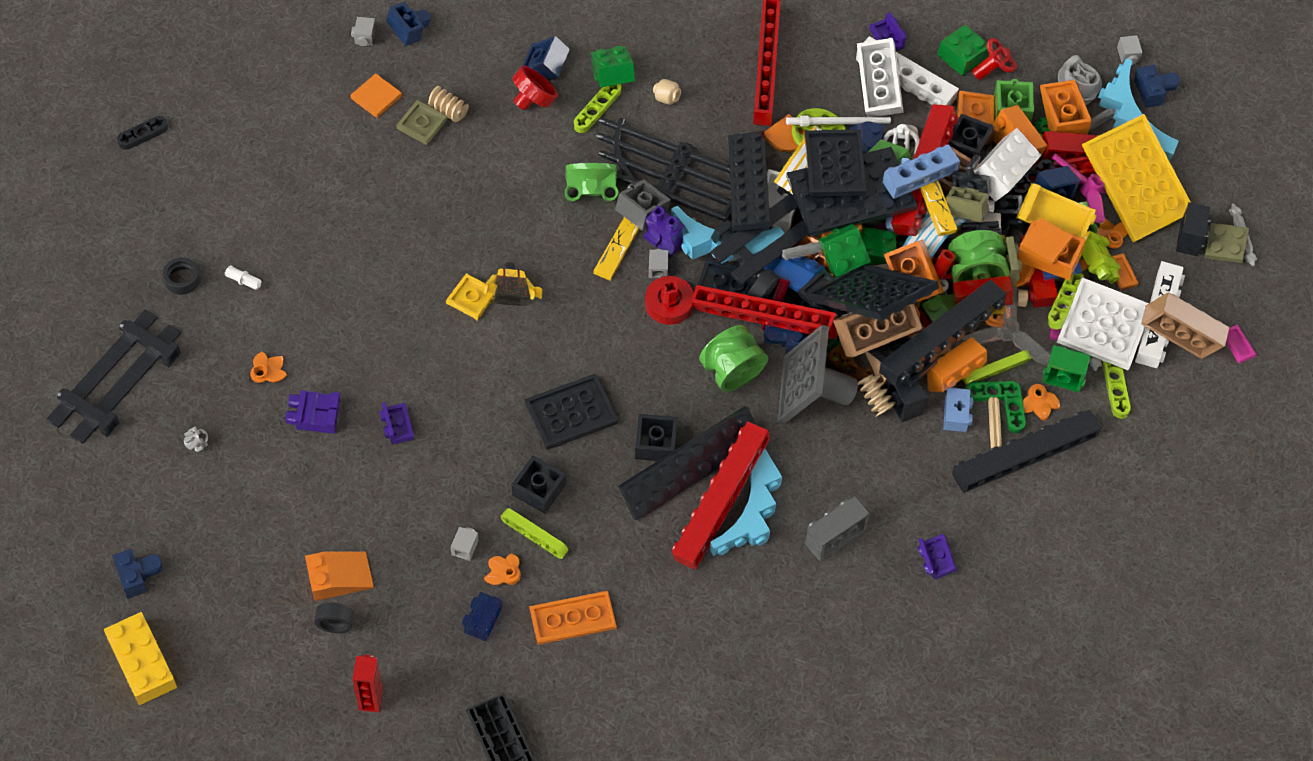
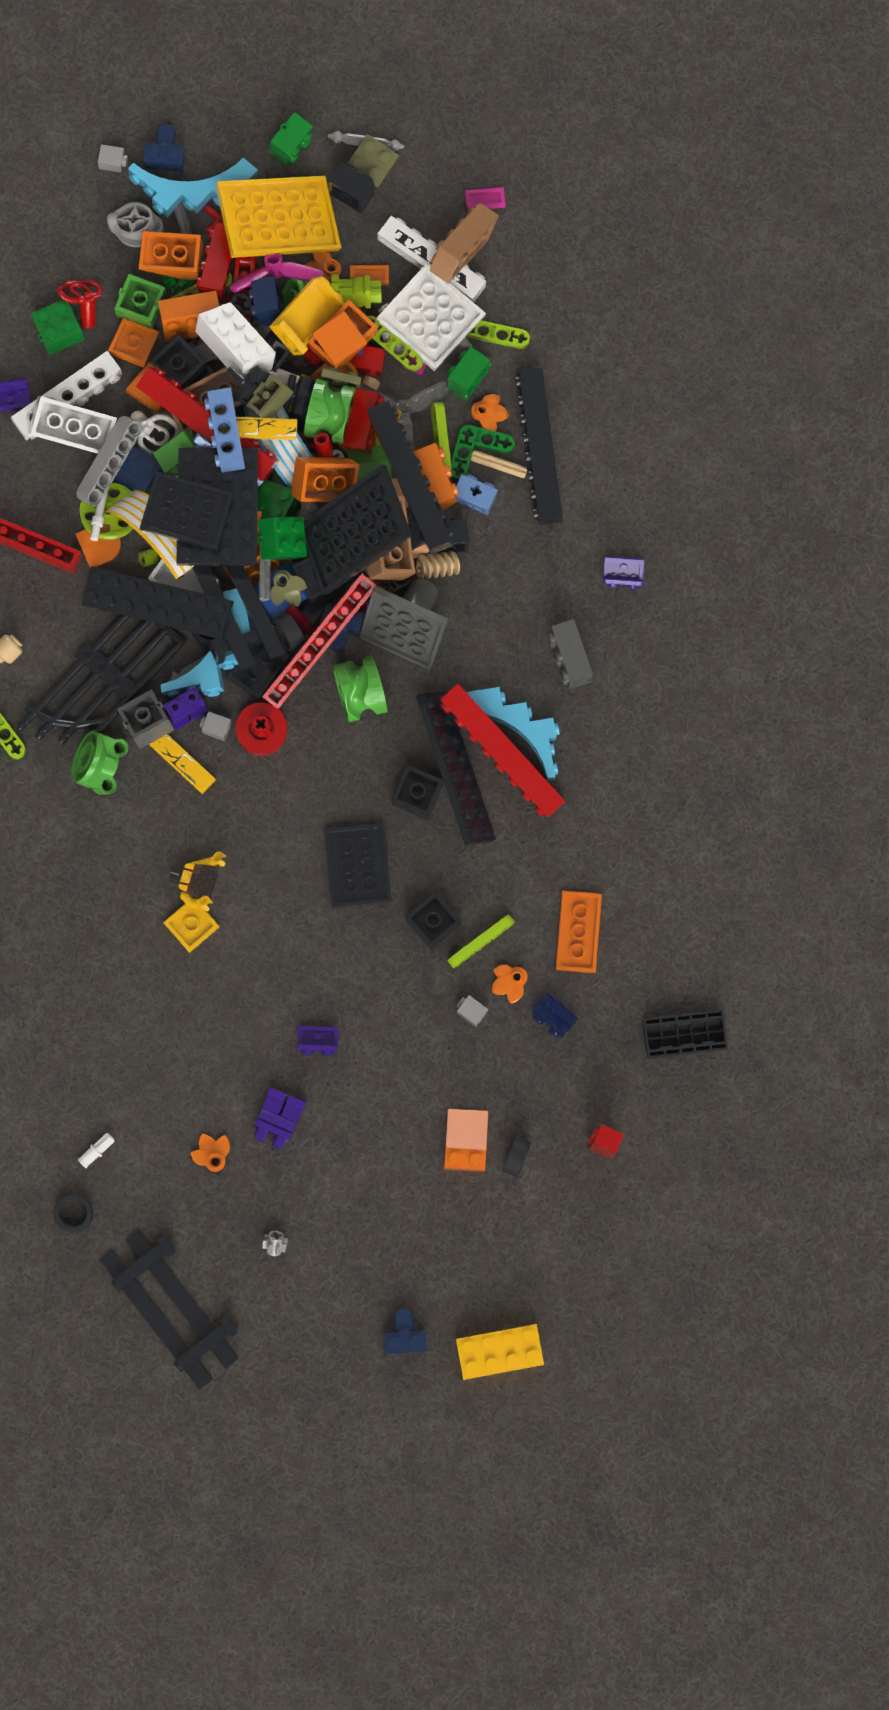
camera: 75 degrees left, 20 degrees up
(801, 270) = (287, 591): none -> olive plate
(869, 108) = (109, 460): none -> light grey beam
(1213, 171) = (291, 139): none -> green brick

